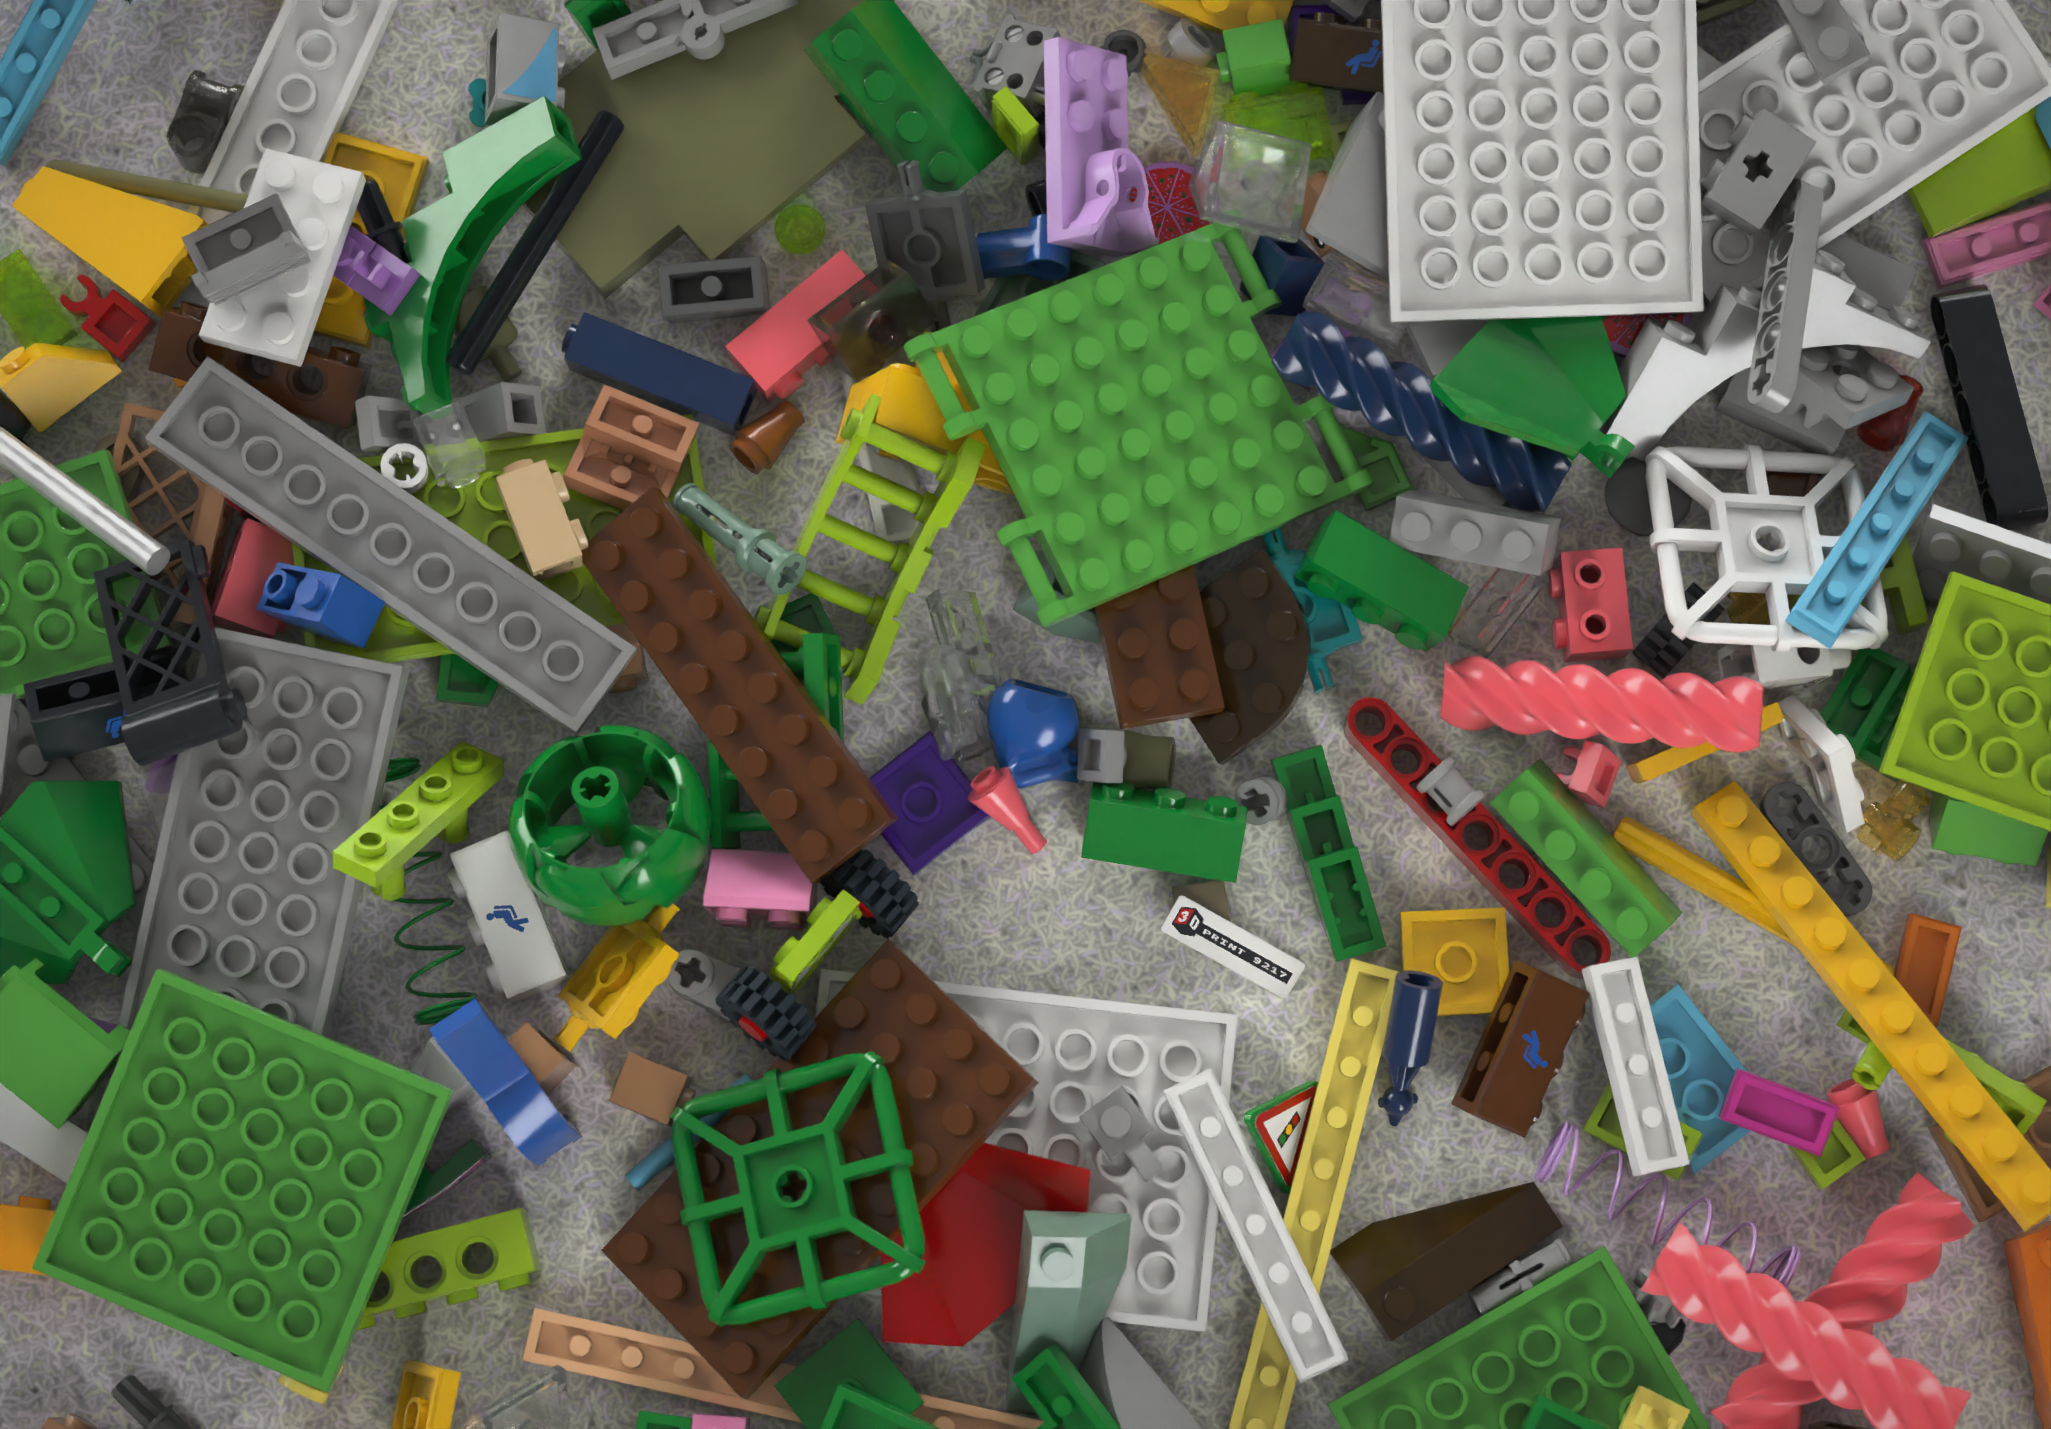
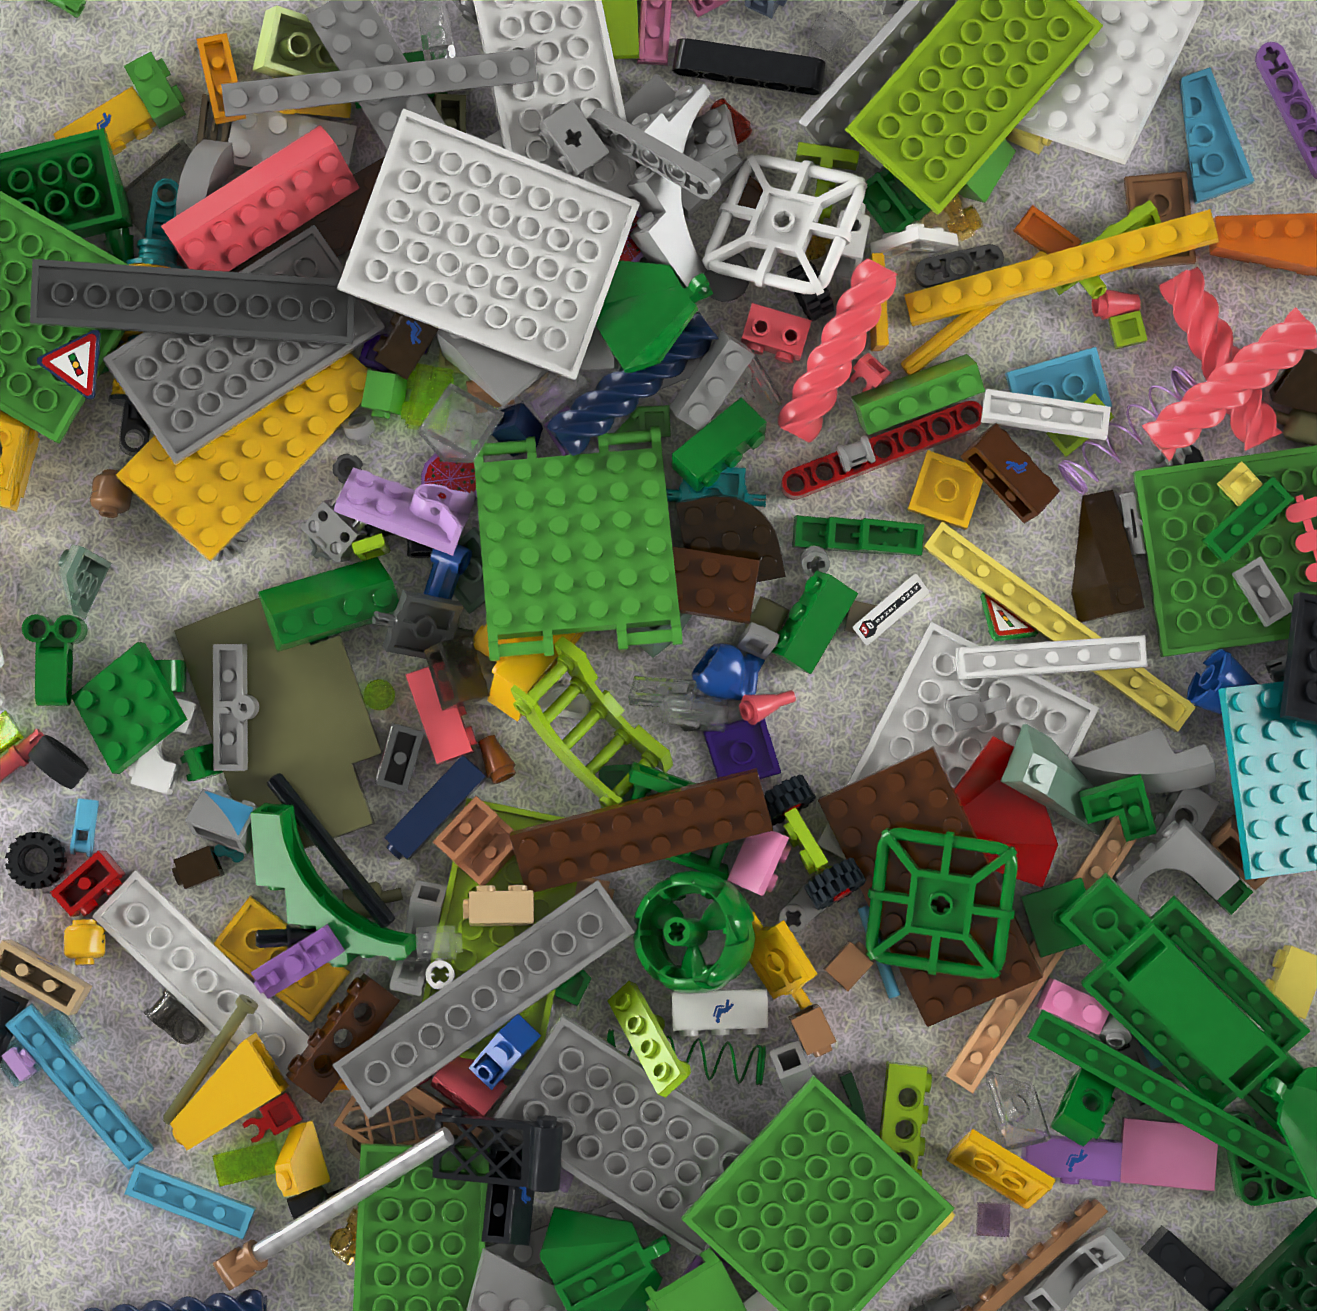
camera: 70 degrees left, 5 degrees up
(245, 250) = (282, 1019): light grey plate -> none
(282, 313) = (287, 1000): white plate -> none
(439, 65) = (197, 868): none -> dark brown brick
(504, 1082) = (821, 1045): blue piece -> none
(699, 507) = (568, 792): sand green pin -> none
(1184, 94) = (389, 442): clear yellow slope -> none
(1409, 1037) = (980, 531): dark blue wheel -> none
(1778, 1112) = (1098, 346): dark pink tile -> none
(1876, 530) = (798, 158): medium azure tile -> none

